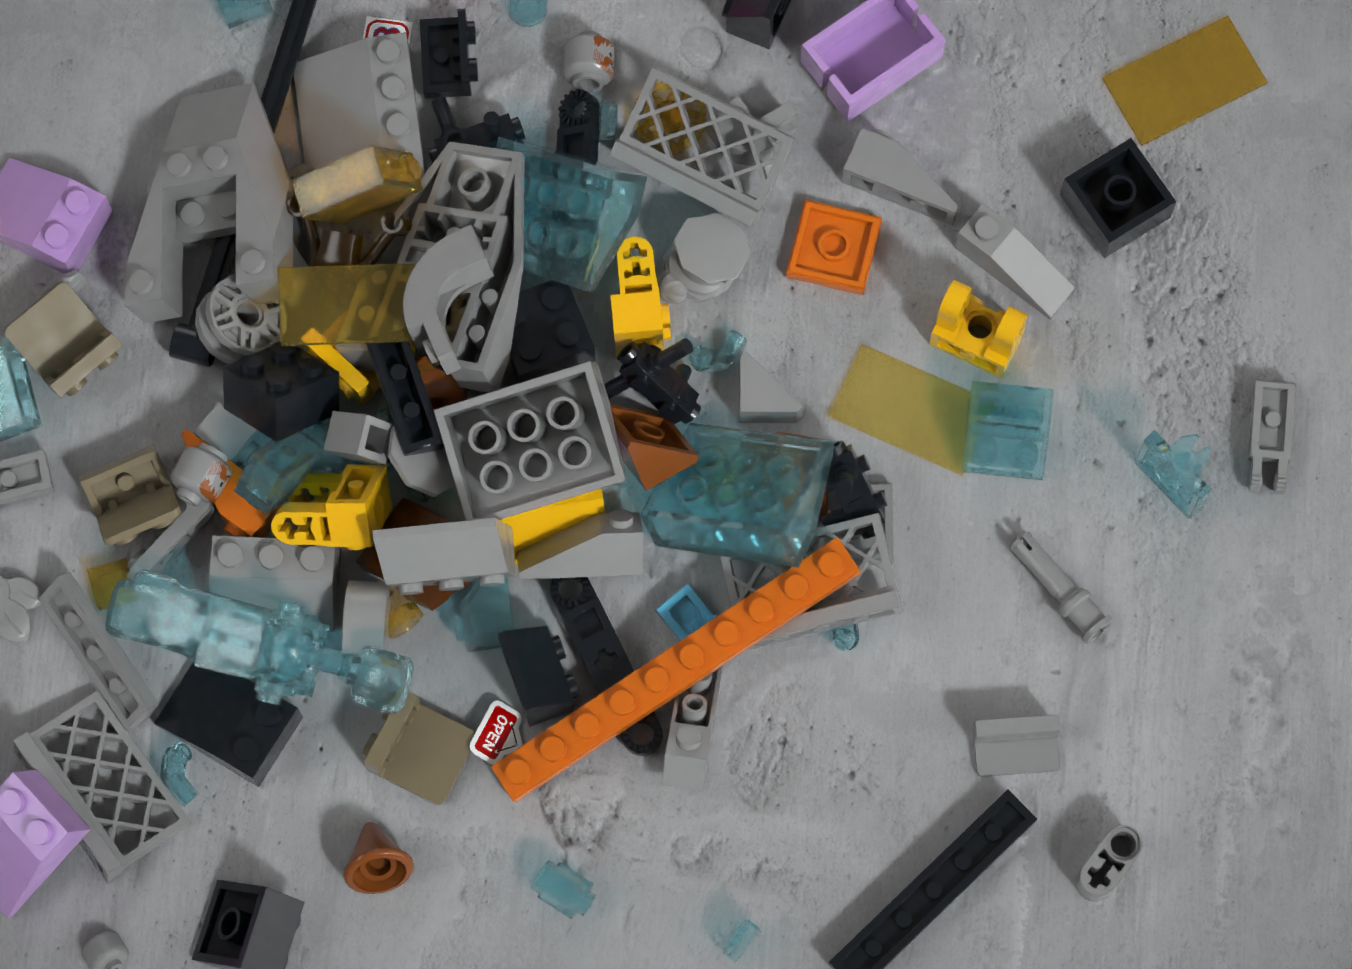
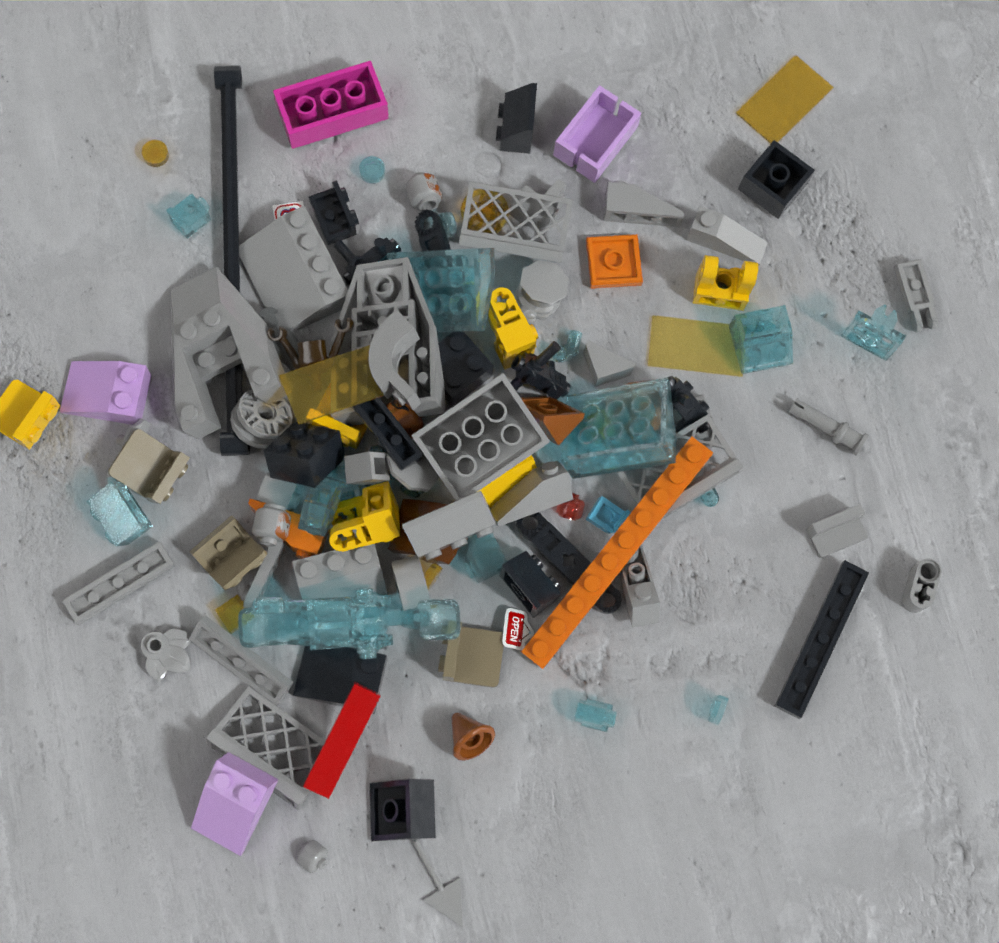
camera: 30 degrees left, 0 degrees up
(173, 773) = (316, 720): clear light blue arm -> none
(194, 804) = (341, 740): none -> red tile
(357, 185) = (310, 308): clear yellow brick -> none
(640, 589) = (572, 509): none -> clear red piece

